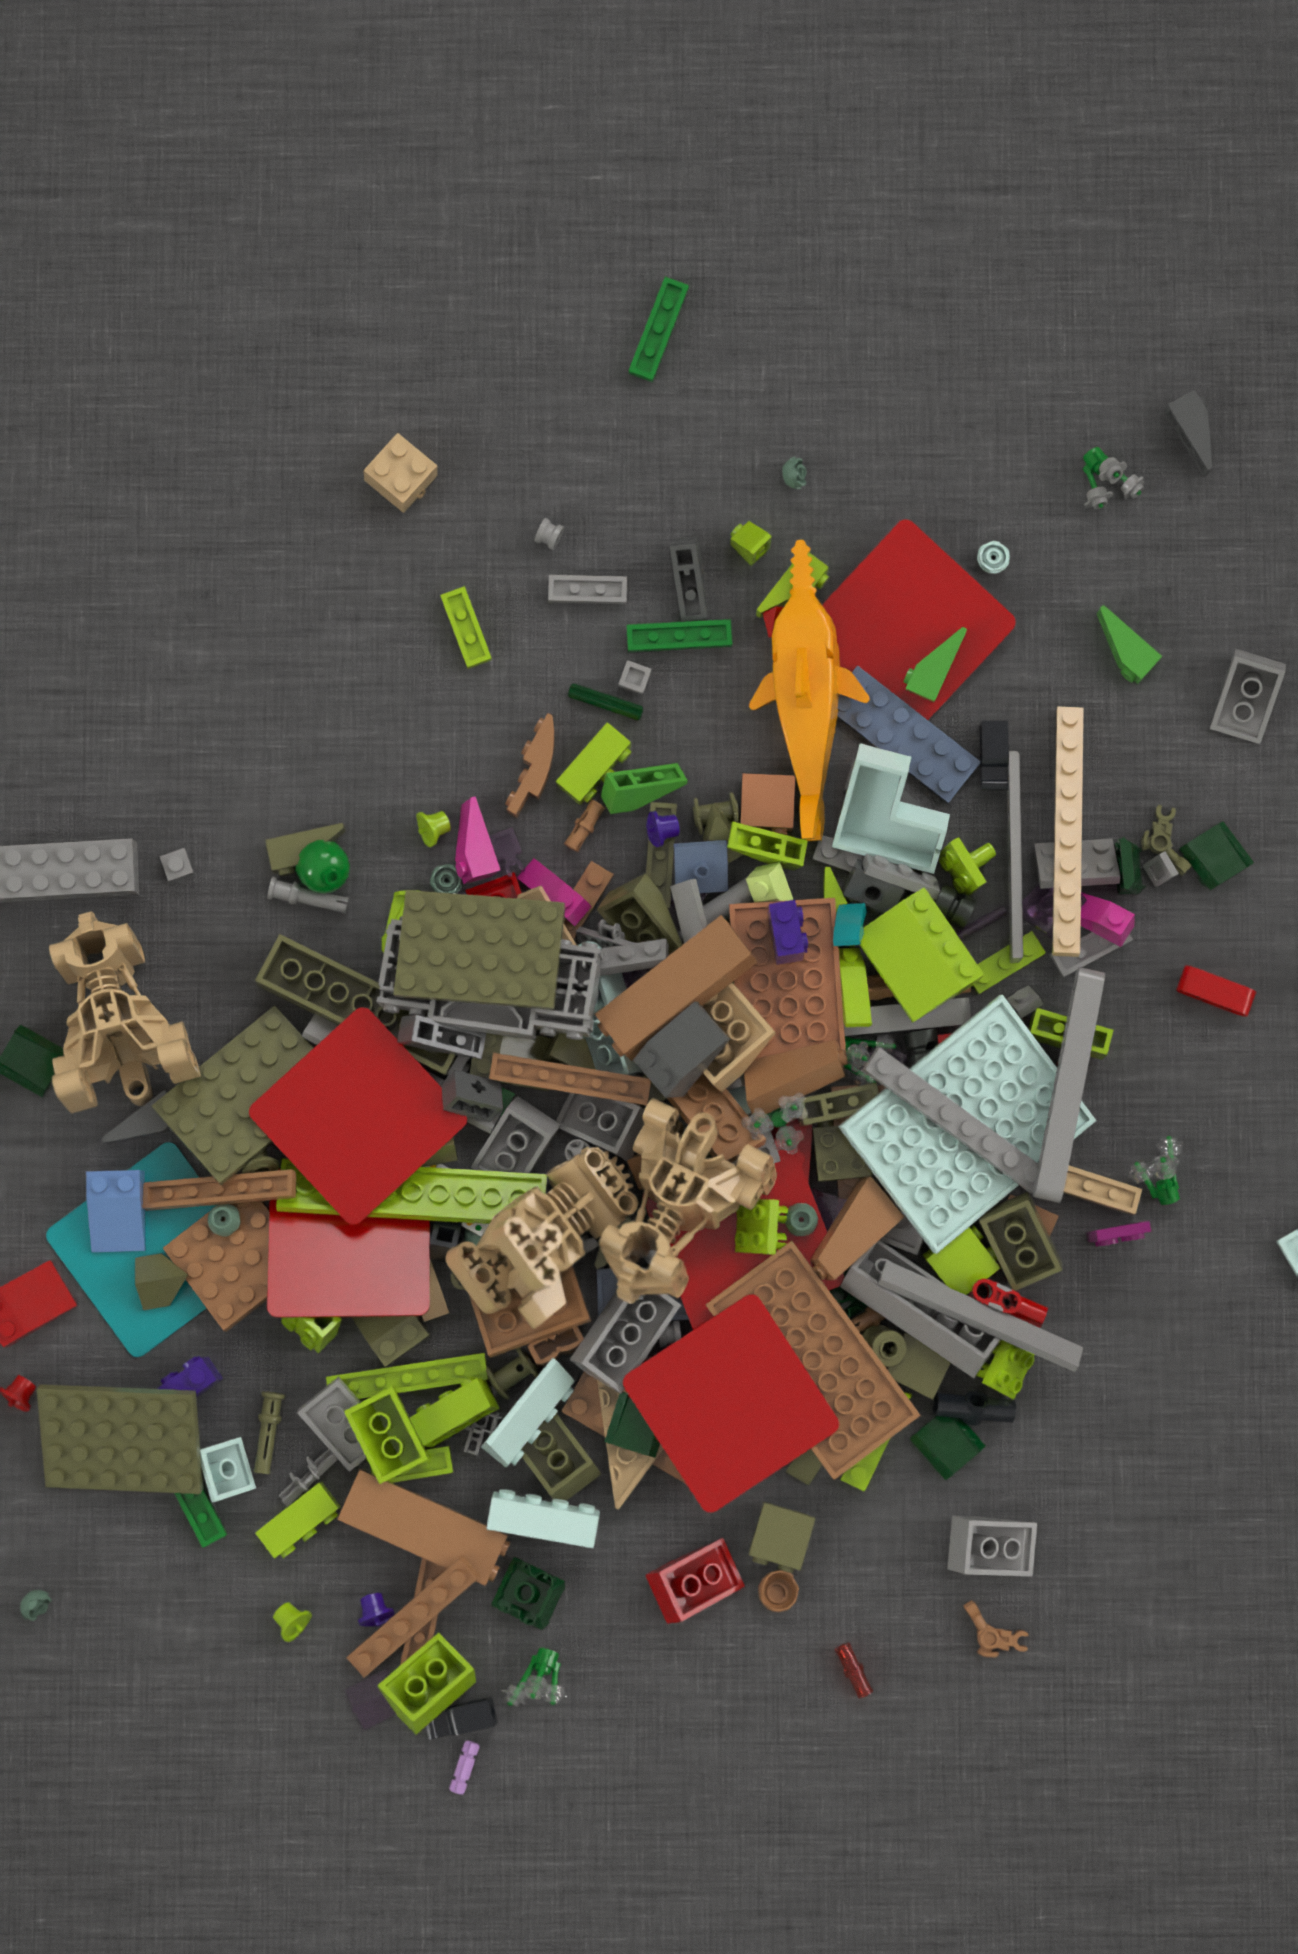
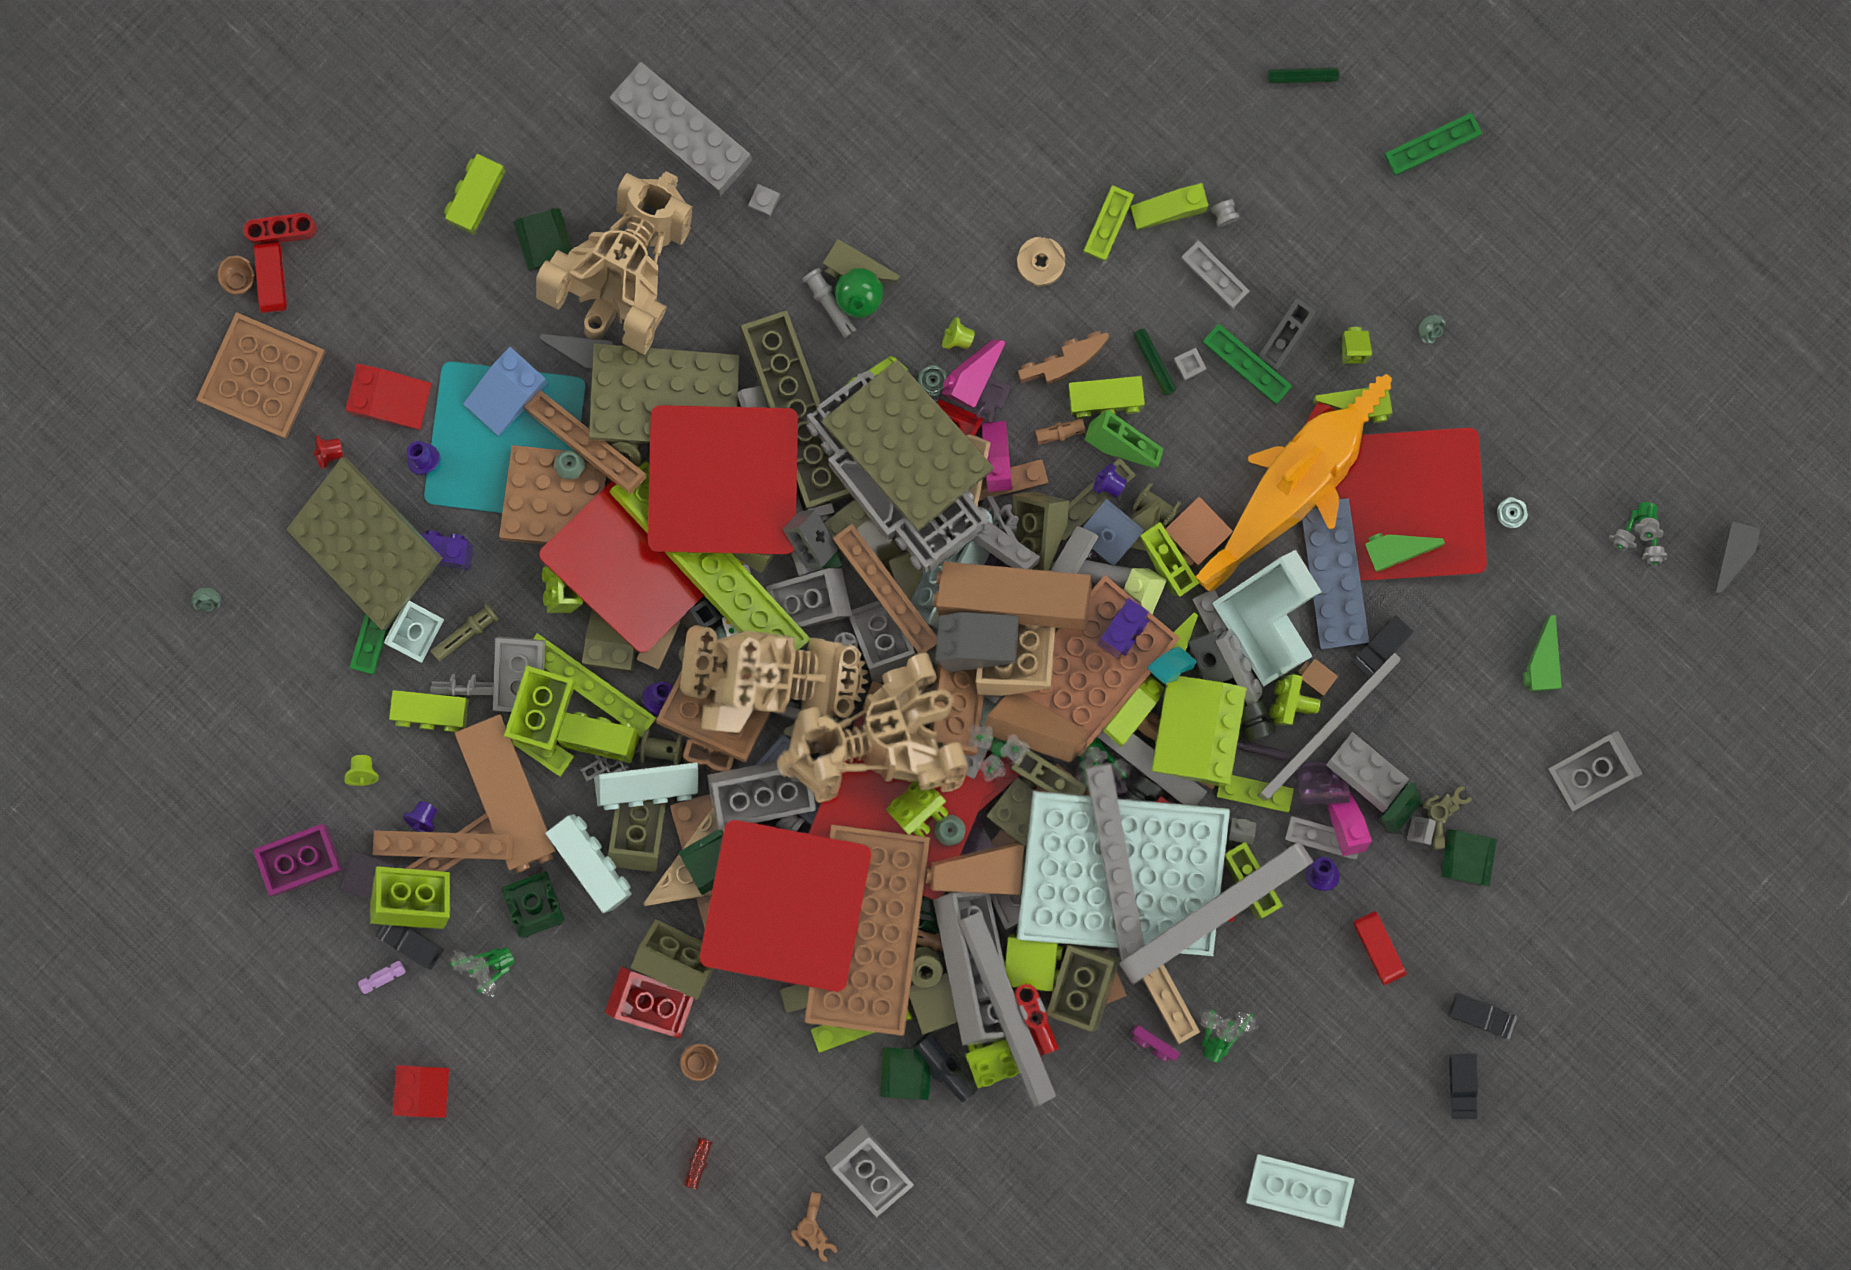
camera: 45 degrees right, 0 degrees up
(100, 1325) = (422, 457): none -> dark purple piece
(157, 1280) = (487, 463): olive slope -> none
(309, 1740) = (298, 860): none -> magenta brick
(400, 473) = (1164, 78): tan brick -> none
(432, 695) = (1041, 247): none -> tan plate
(440, 1037) = (824, 476): dark grey slope -> none
(468, 1336) = (656, 696): none -> dark purple piece
(501, 569) = (1170, 206): none -> lime slope
(506, 370) = (1303, 75): none -> dark green axle
(582, 1827) = (421, 1091): none -> red slope
(681, 1530) = (672, 959): none -> olive brick
(781, 1537) = (734, 1028): olive brick -> none
(967, 826) = (1317, 677): none -> medium nougat brick
(1068, 832) = (1381, 744): tan plate -> none
(1119, 976) = (1322, 874): none -> dark purple piece

